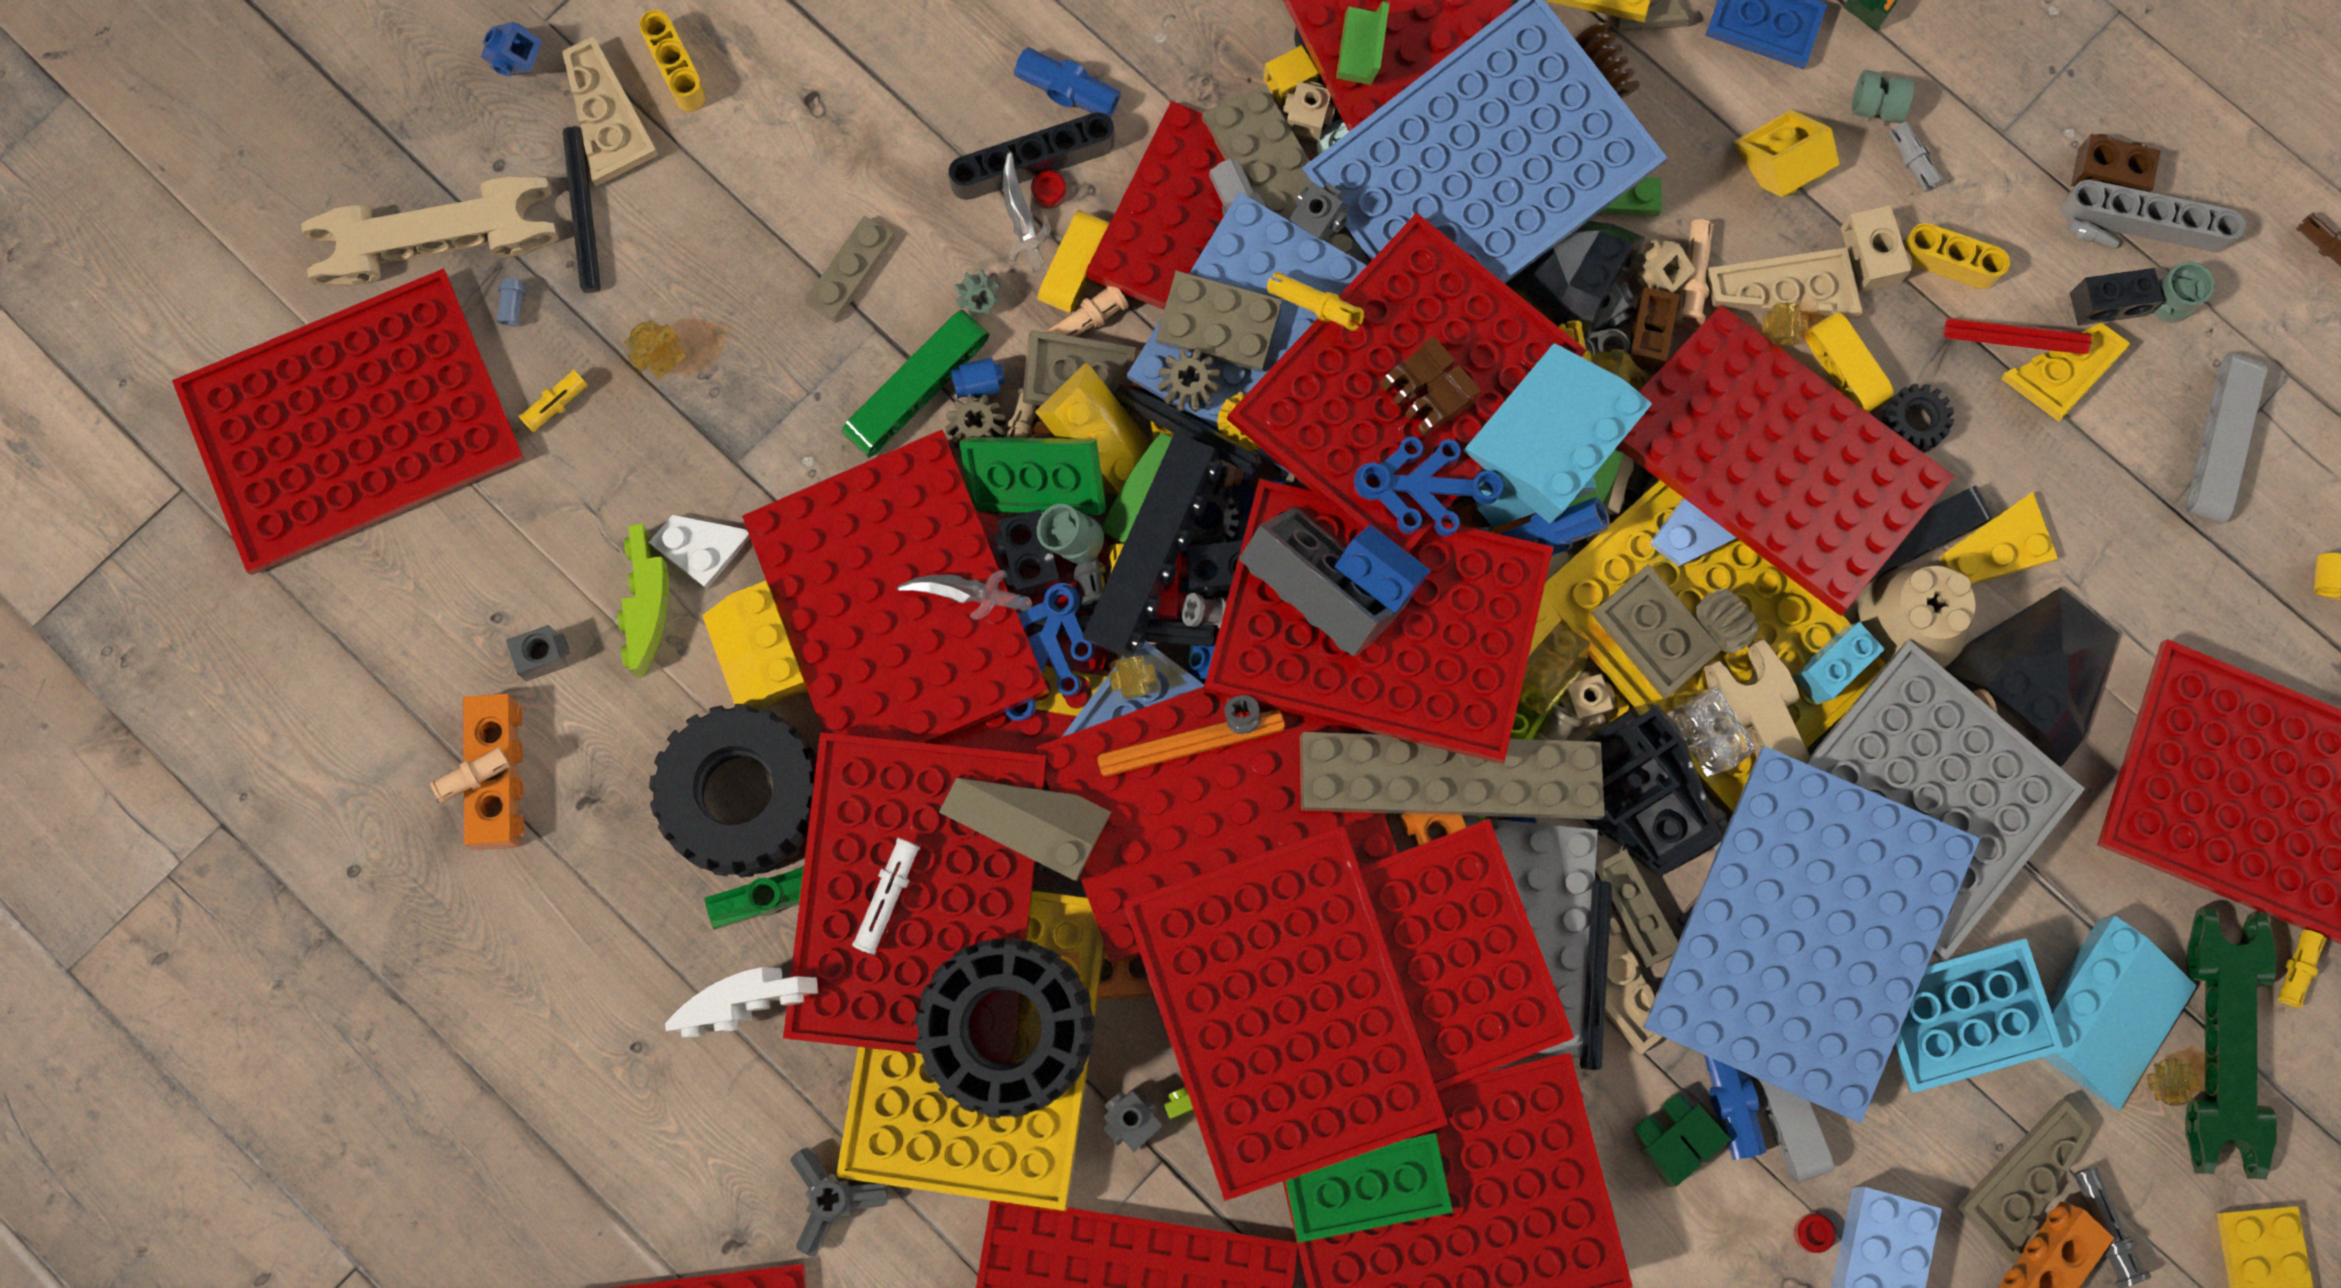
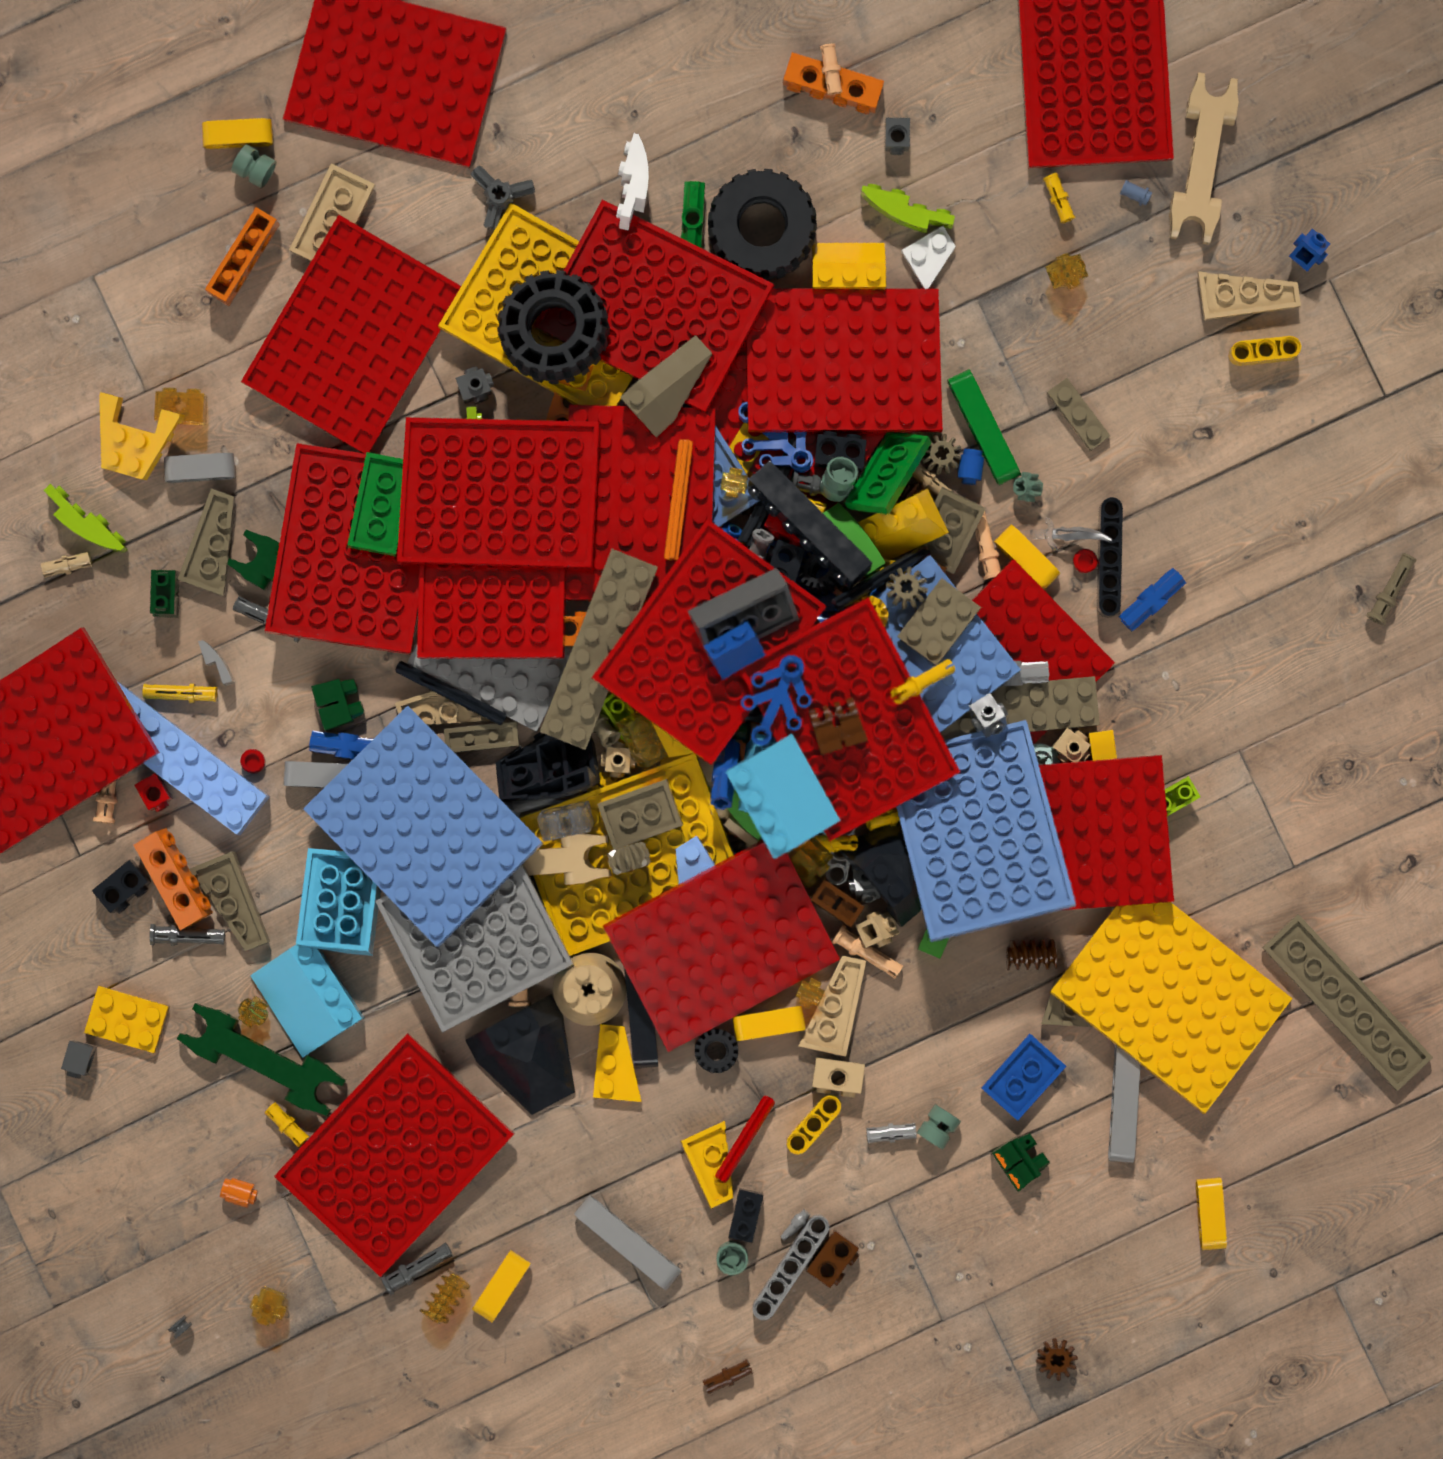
camera: 115 degrees right, 10 degrees up
(581, 210) = (1184, 258): black axle -> none
(867, 938) = (678, 306): white pin -> none
(969, 590) = (828, 405): piece -> none
(1242, 704) = (673, 534): dark grey bush -> none
(1362, 44) = (1093, 789): bright green panel -> none
(1788, 152) = (925, 1047): yellow slope -> none
(1838, 662) = (578, 920): medium azure brick -> none

